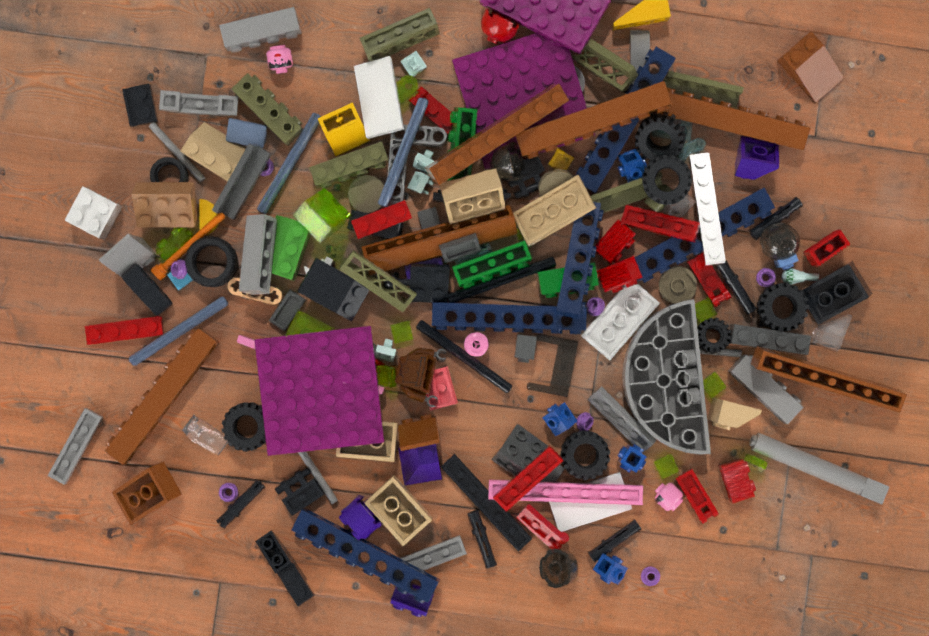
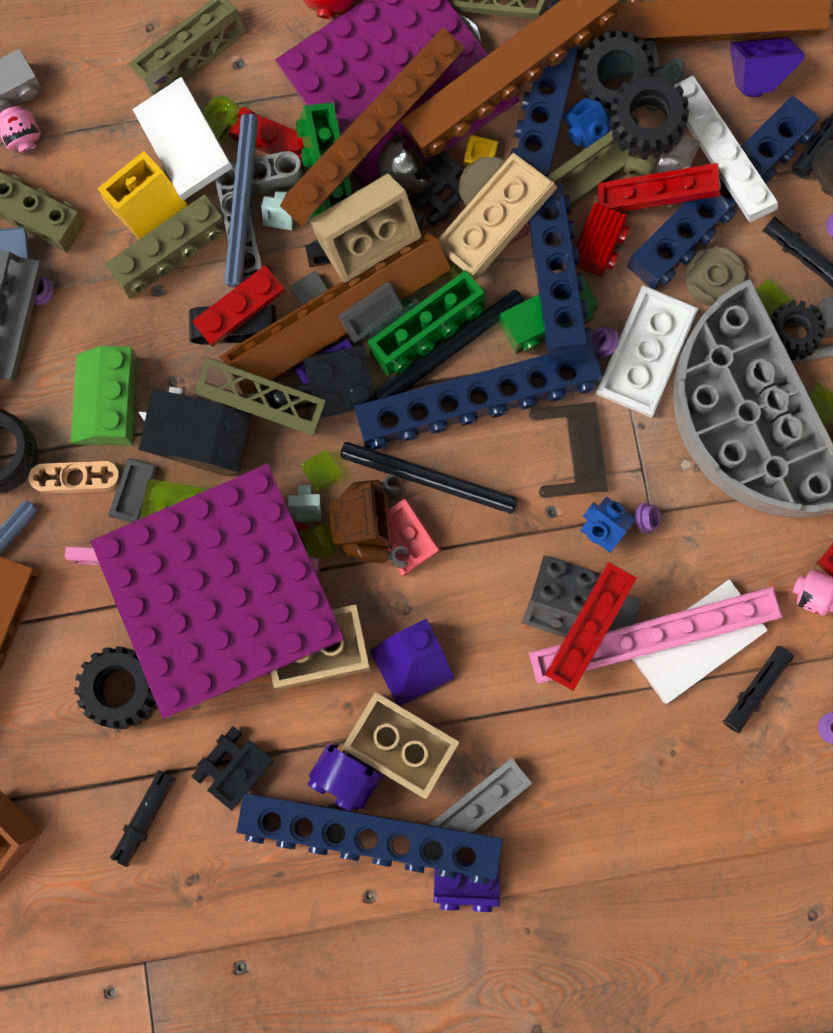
camera: 20 degrees left, 10 degrees down
(205, 435) = (55, 724): clear slope -> none
(222, 492) = (108, 806): medium lavender plate -> none
(257, 254) = (62, 416): light grey brick -> none
(285, 567) = (245, 900): black slope -> none
(289, 163) = (74, 276): sand blue axle -> none
(318, 477) = (253, 733): light grey bar -> none
(322, 215) = (144, 326): clear neon green brick -> none
(365, 193) = (202, 281): dark tan tile -> none
(413, 64) = (220, 81): light aqua tile -> none
(418, 182) = (278, 242): light aqua tile -> none
(418, 433) = (396, 610): dark orange slope -> none
(470, 339) = (441, 460): bright pink head -> none
(474, 517) = (571, 782): black pin -> none
(490, 508) = (542, 698): black tile -> none
(525, 348) = (518, 434): dark grey brick -> none
(542, 528) = (638, 704): red plate -> none
(558, 568) = (687, 758): clear smoke cylinder -> none
(595, 468) = (687, 552): black tyre -> none
(610, 569) = (769, 734): blue brick -> none
(619, 274) = (624, 279): red brick -> none
(621, 419) = (703, 497): light grey plate -> none
(638, 461) = (749, 545): blue brick -> none
(666, 466) = (796, 548): clear neon green tile -> none
(708, 280) = (758, 253): red plate -> none

